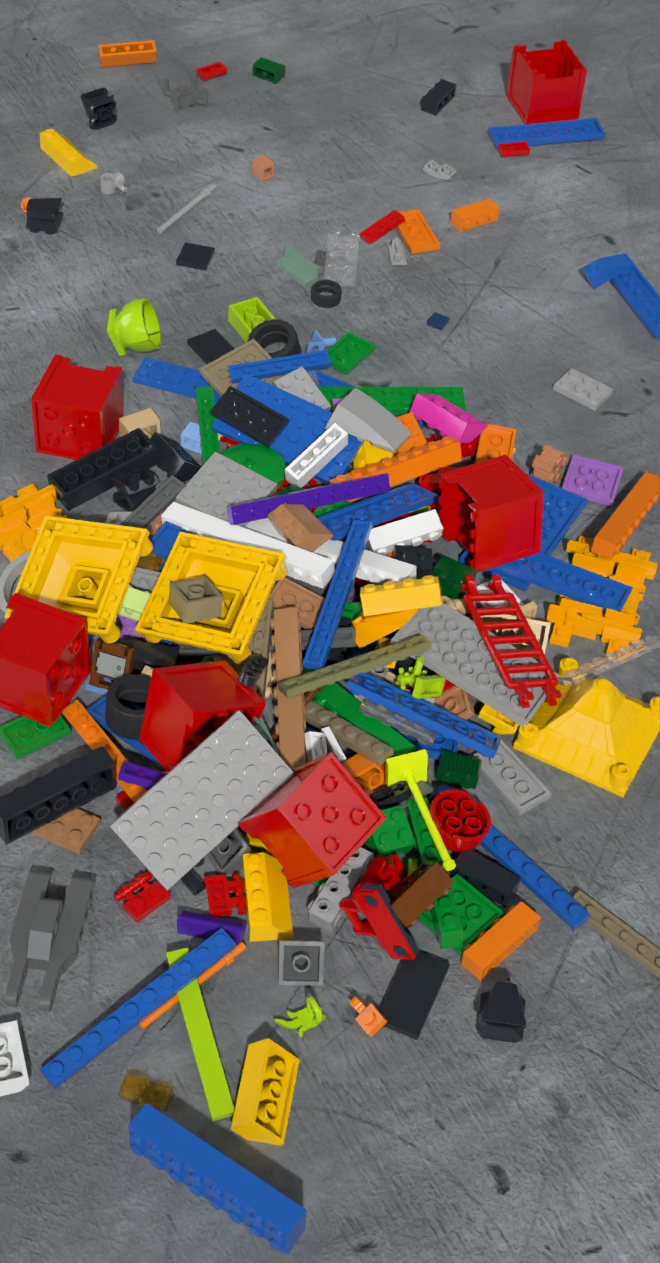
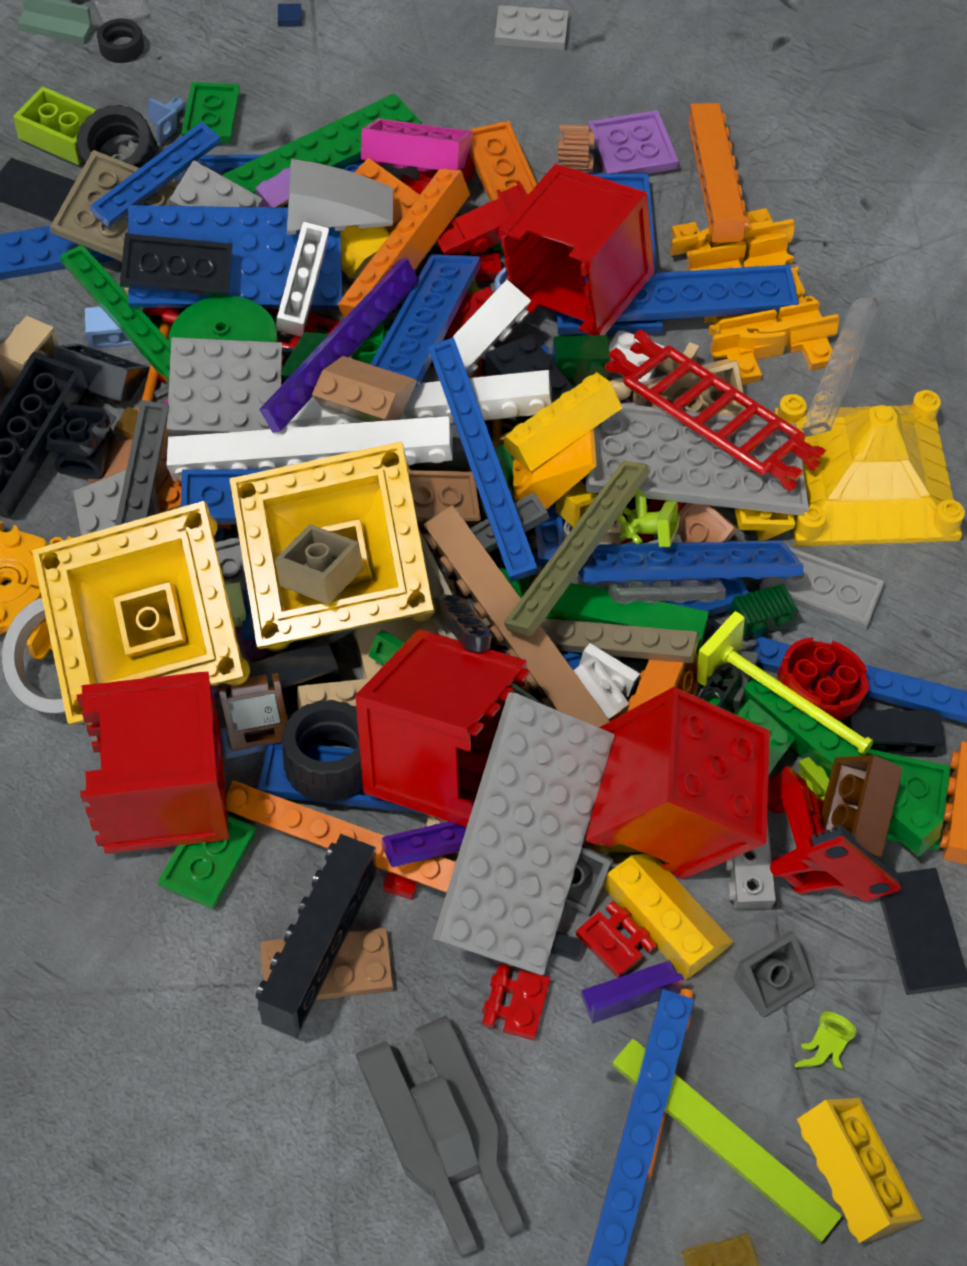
camera: 30 degrees left, 10 degrees up
(370, 1017) = (901, 994): orange plate -> none

